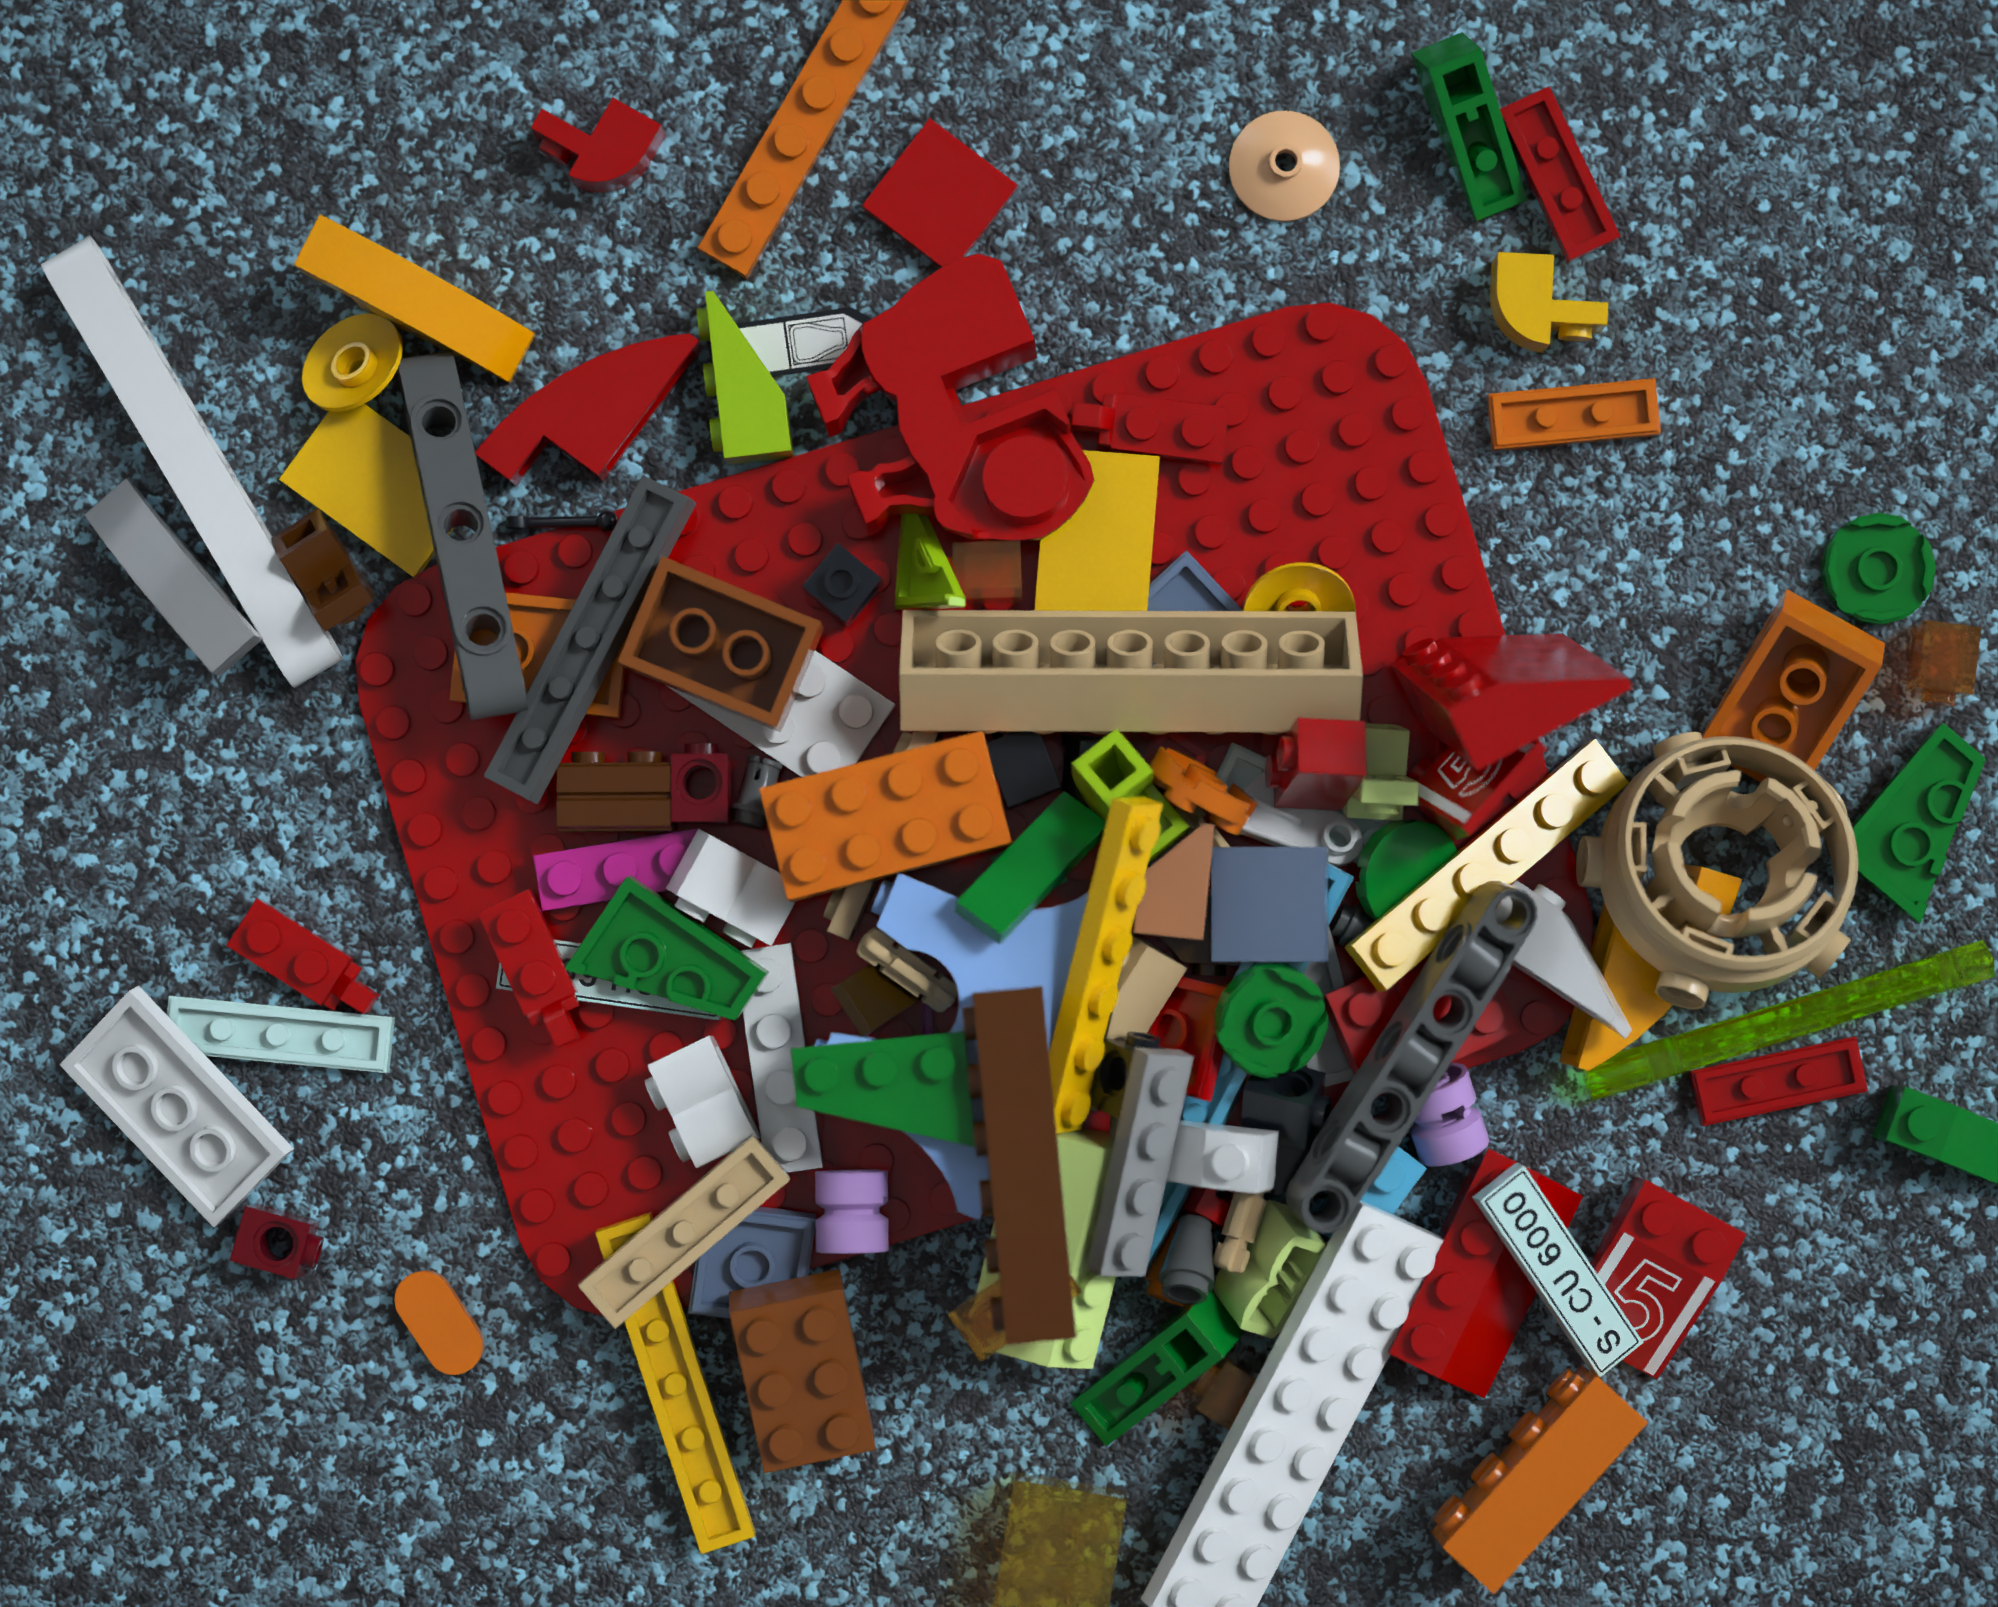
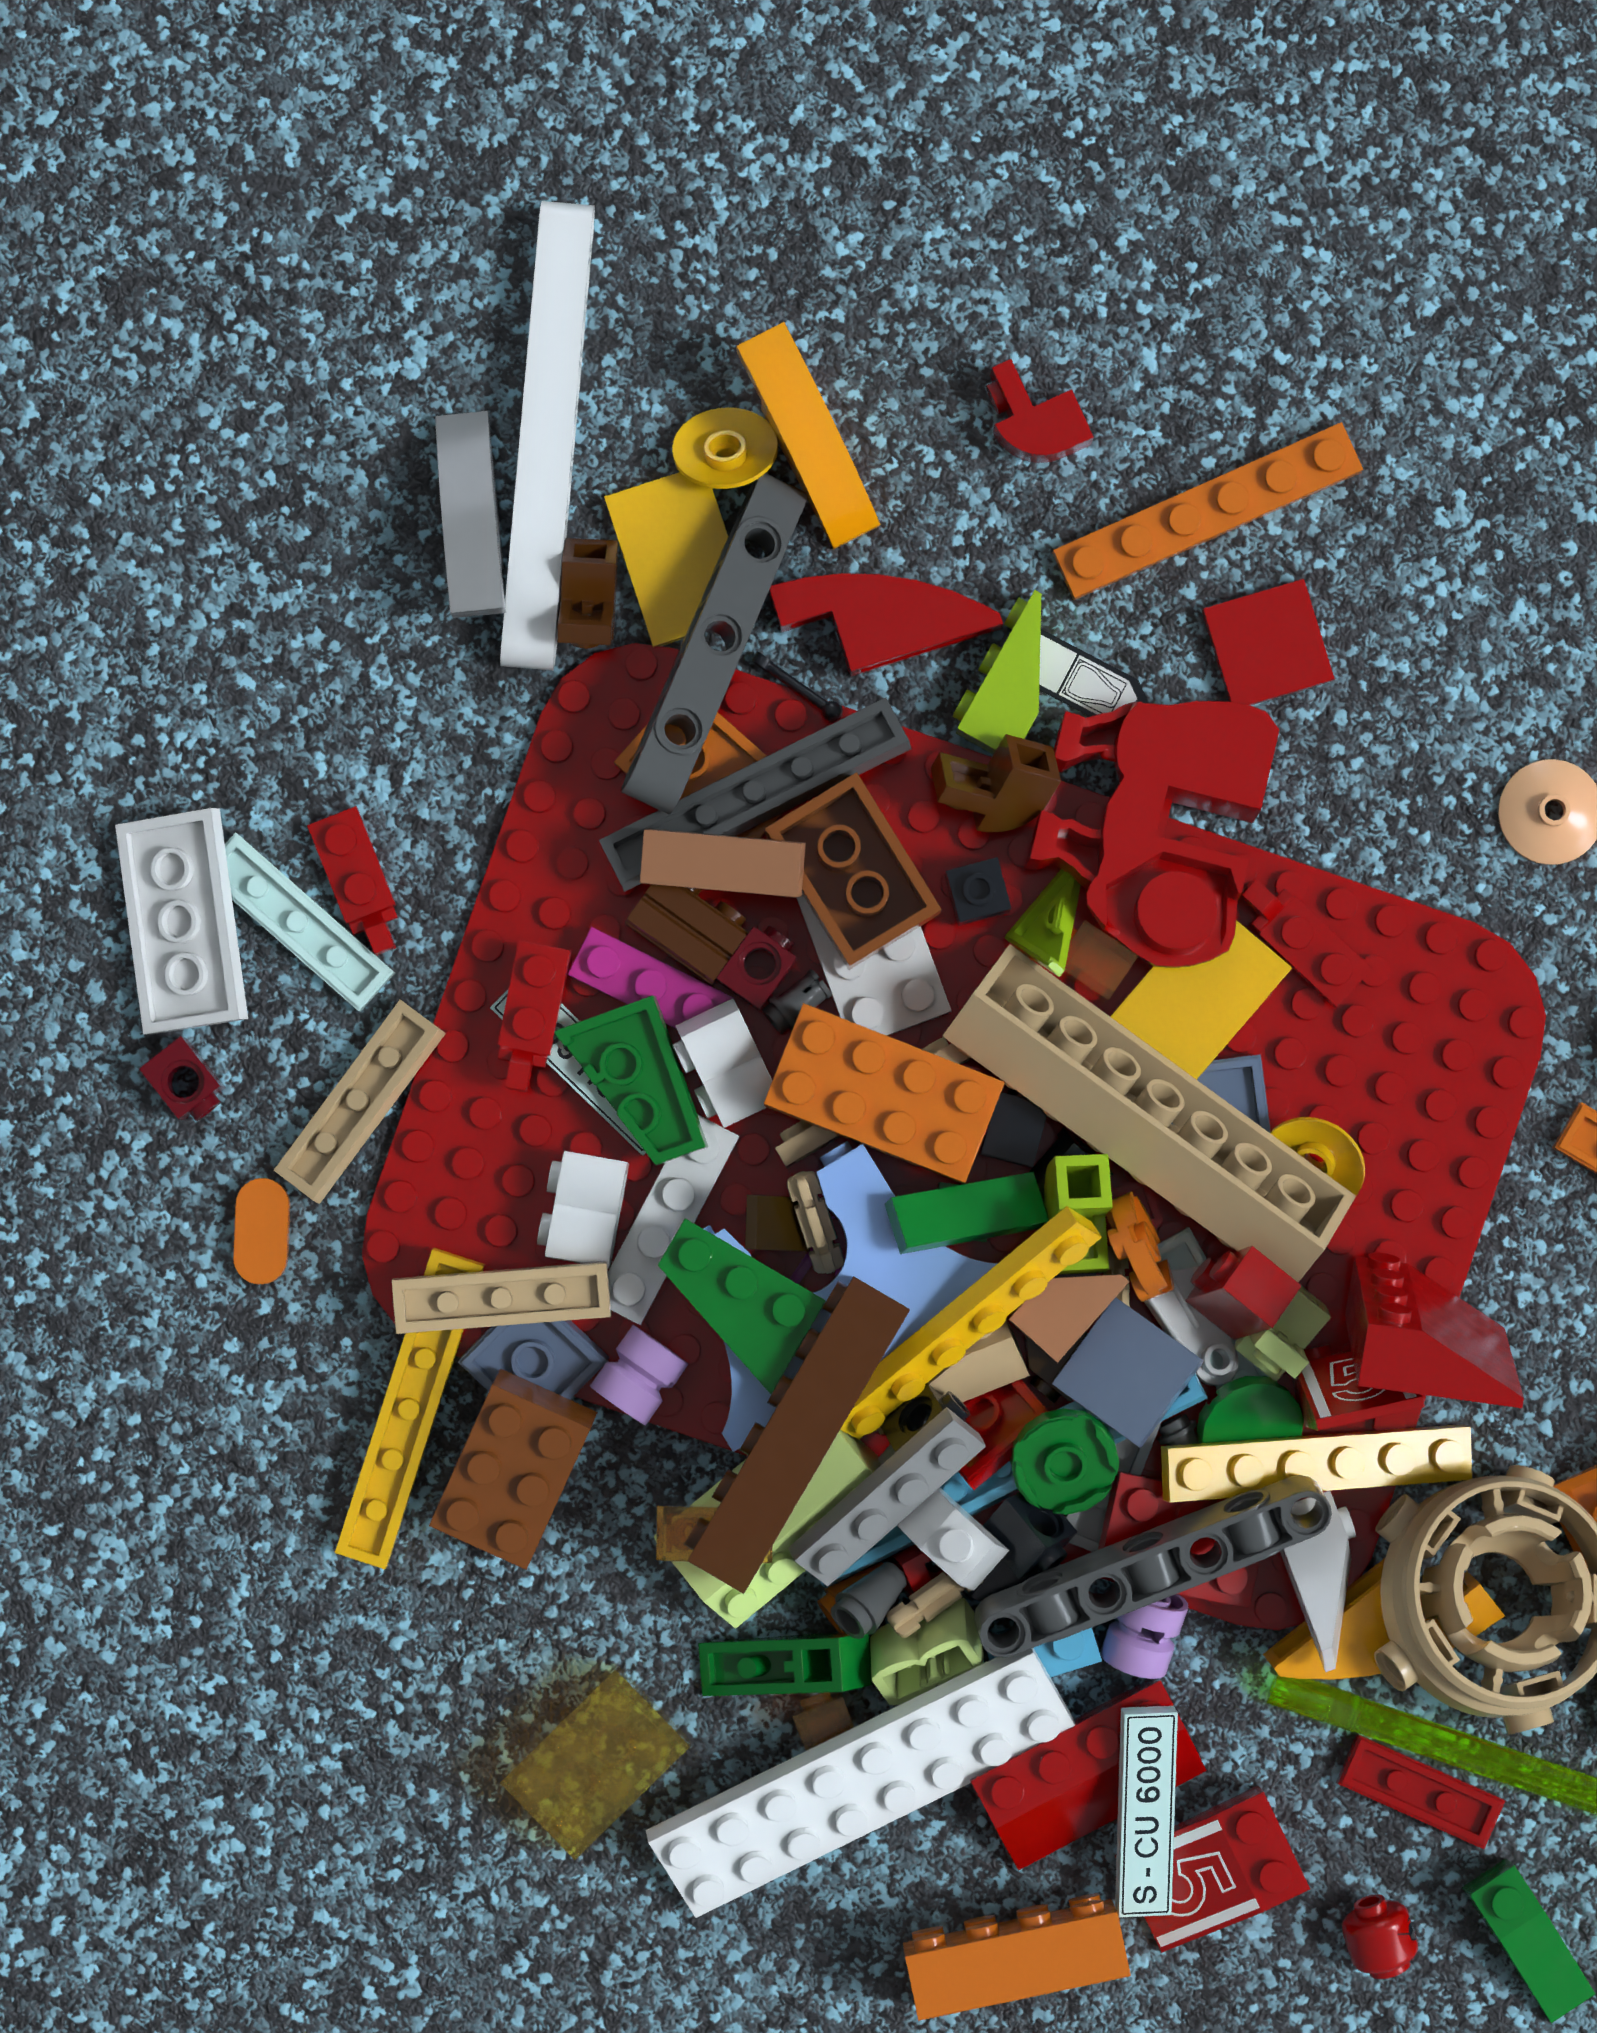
camera: 30 degrees right, 0 degrees up
(442, 1150) = (359, 1102): none -> tan plate
(602, 717) = (722, 862): none -> nougat tile
(804, 482) = (1006, 790): none -> reddish brown brick
(1834, 1231) = (1380, 1937): none -> red head

